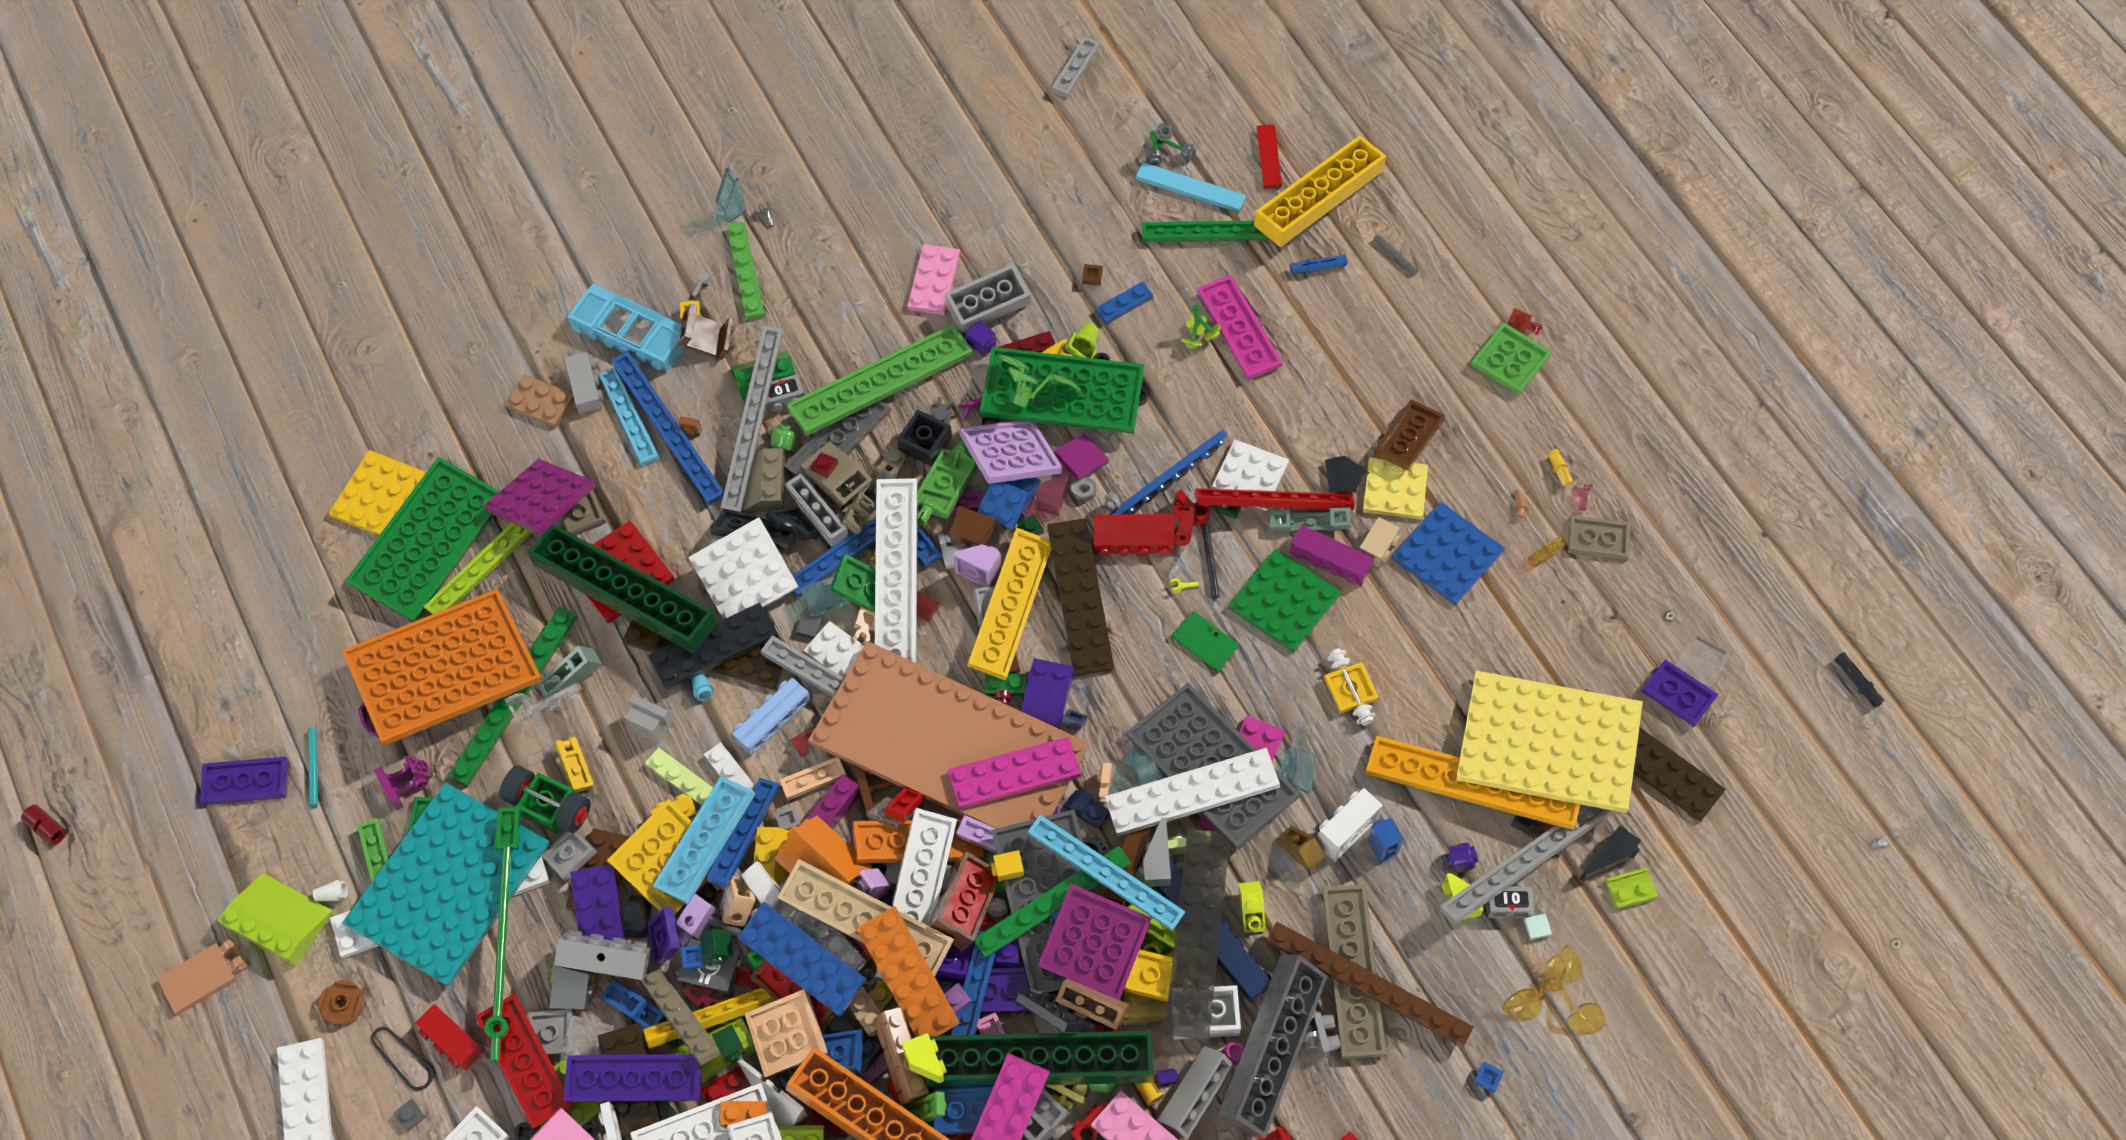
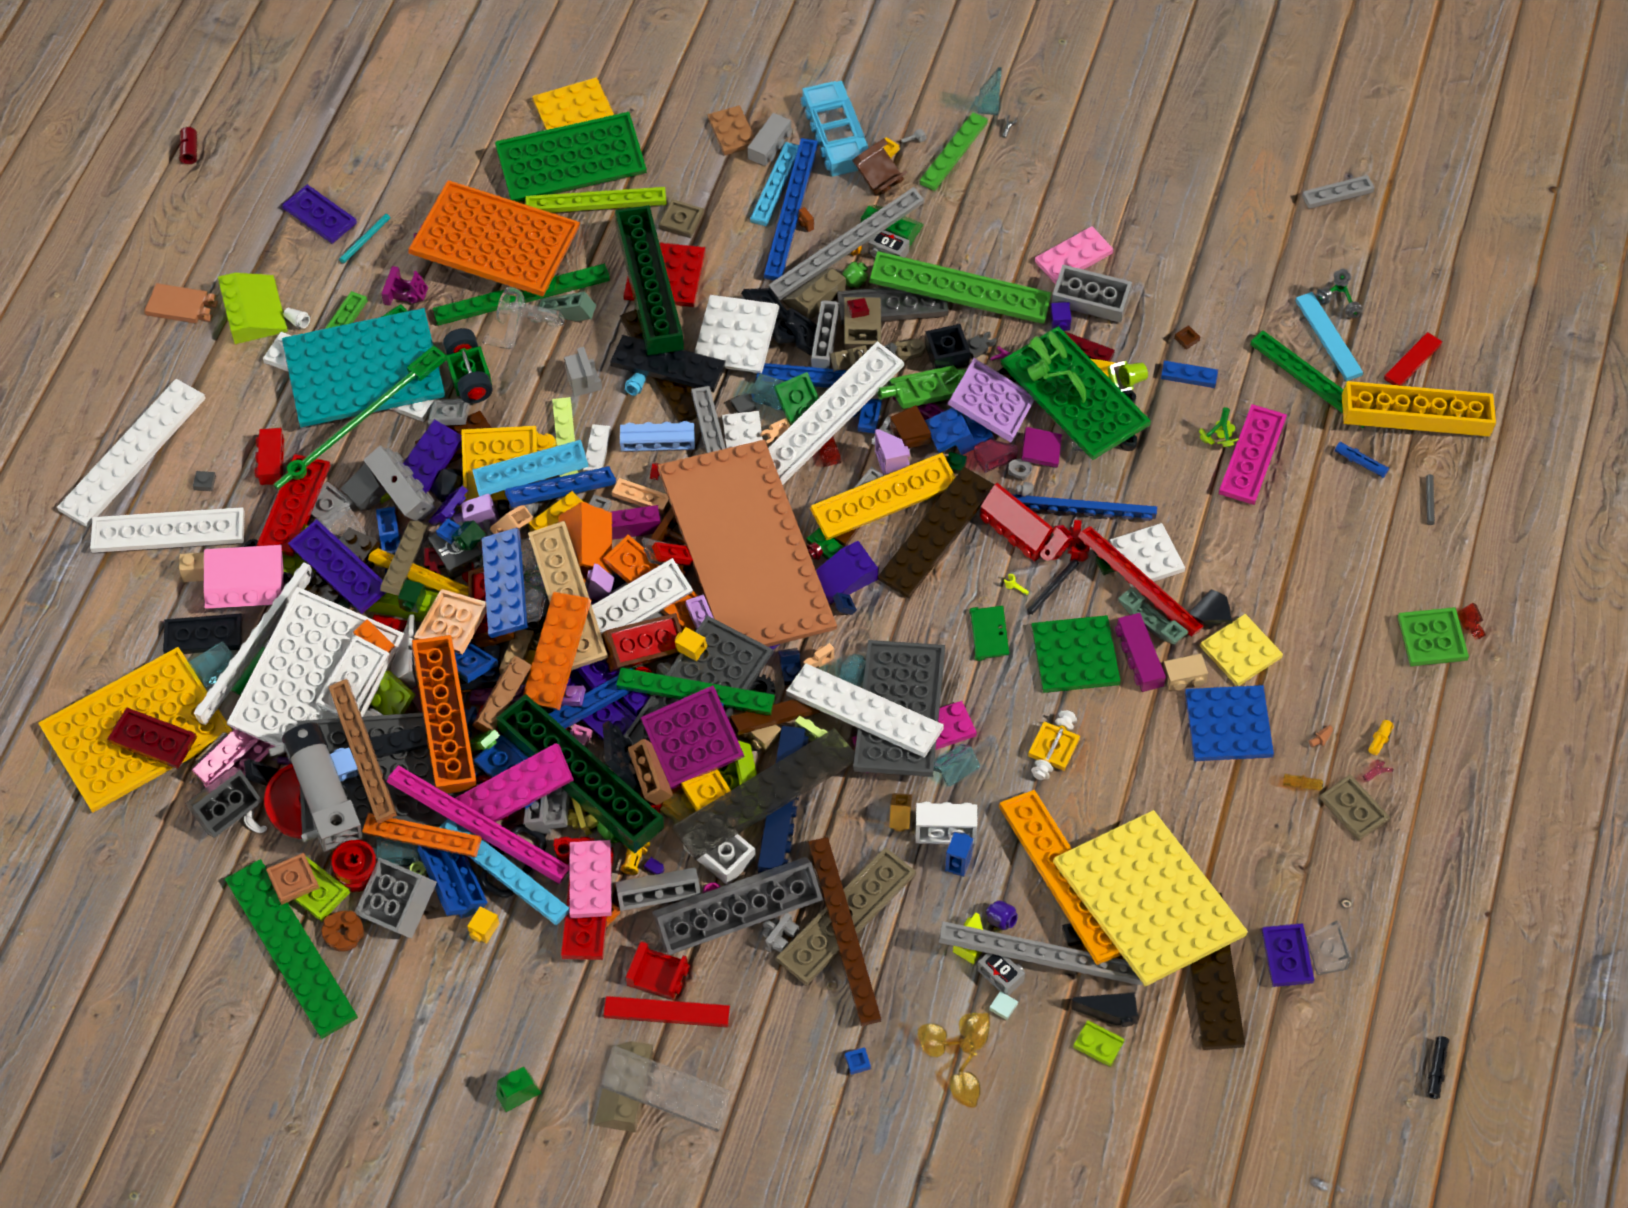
camera: 45 degrees right, 5 degrees down
(348, 1013) = (238, 393): dark orange plate -> none
(392, 1064) = (244, 447): black piece -> none
(539, 496) = (663, 184): magenta plate -> none
(573, 764) = (509, 364): yellow plate -> none
(761, 884) = (534, 520): white slope -> none
(922, 1058) = (507, 699): neon yellow slope -> none
(1014, 773) = (764, 597): dark pink plate -> none
(1106, 872) = (744, 701): medium azure plate -> none
(1156, 860) = (792, 727): light grey slope -> none
(1252, 907) = (825, 816): neon yellow slope -> none
(1409, 435) = (1291, 622): reddish brown plate -> none

